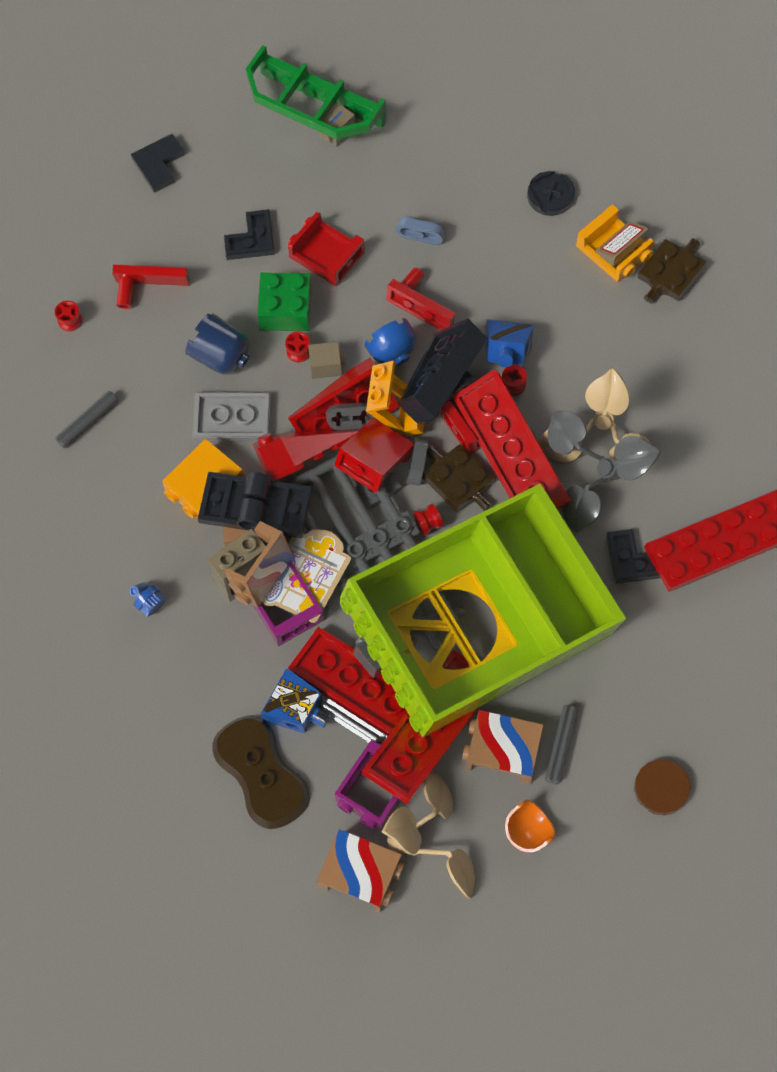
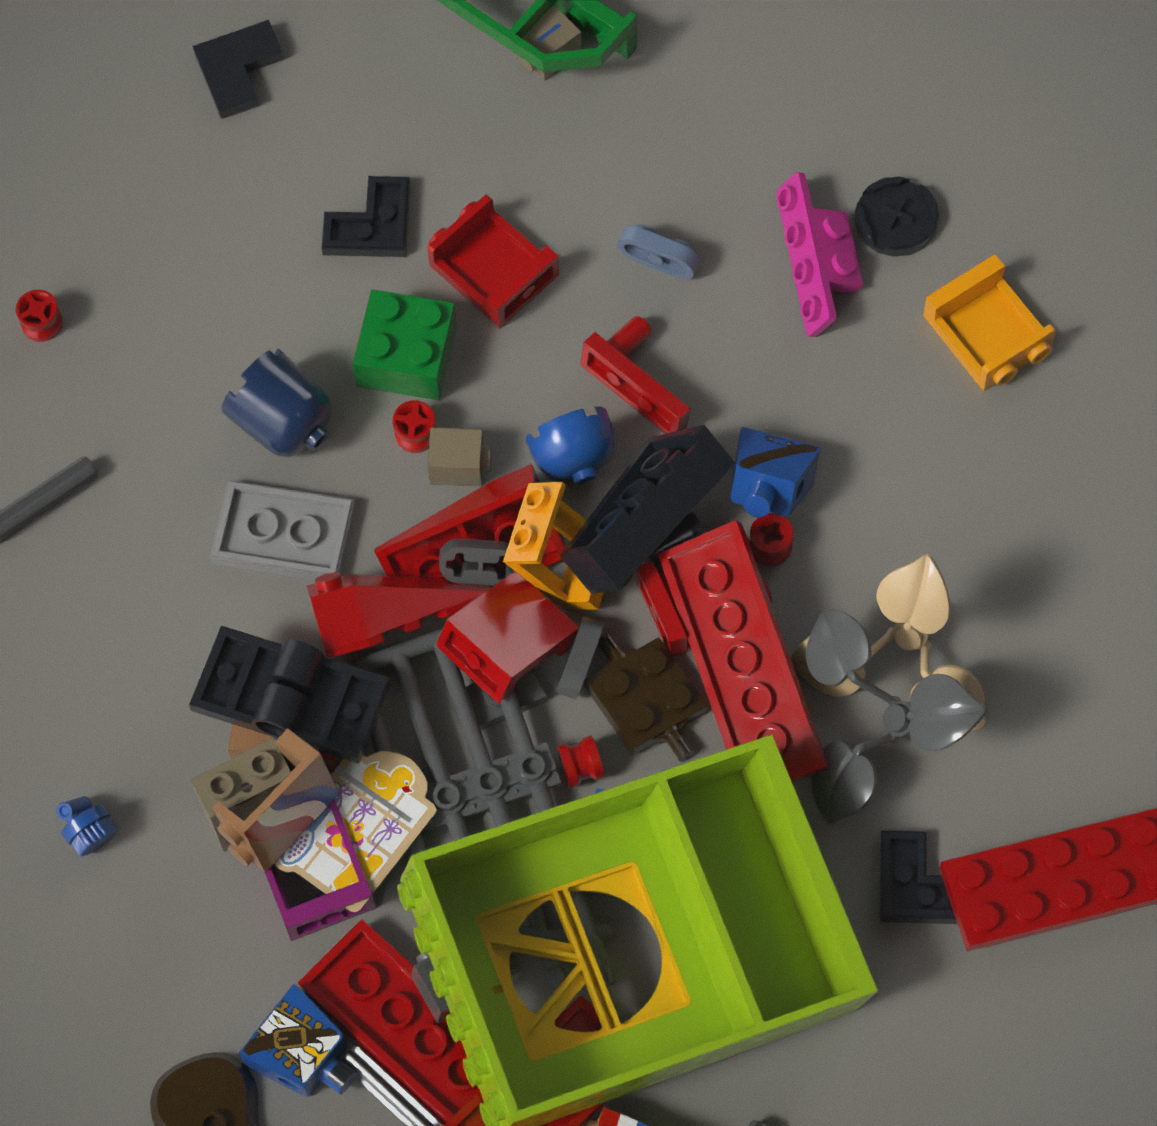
camera: 10 degrees right, 0 degrees up
(130, 274) = (151, 259): red piece -> none
(189, 478) = (188, 629): light orange panel -> none
(511, 219) = (819, 253): none -> dark pink bracket
(622, 243) = (1001, 324): slope -> none
(672, 270) = (1080, 384): dark brown plate -> none

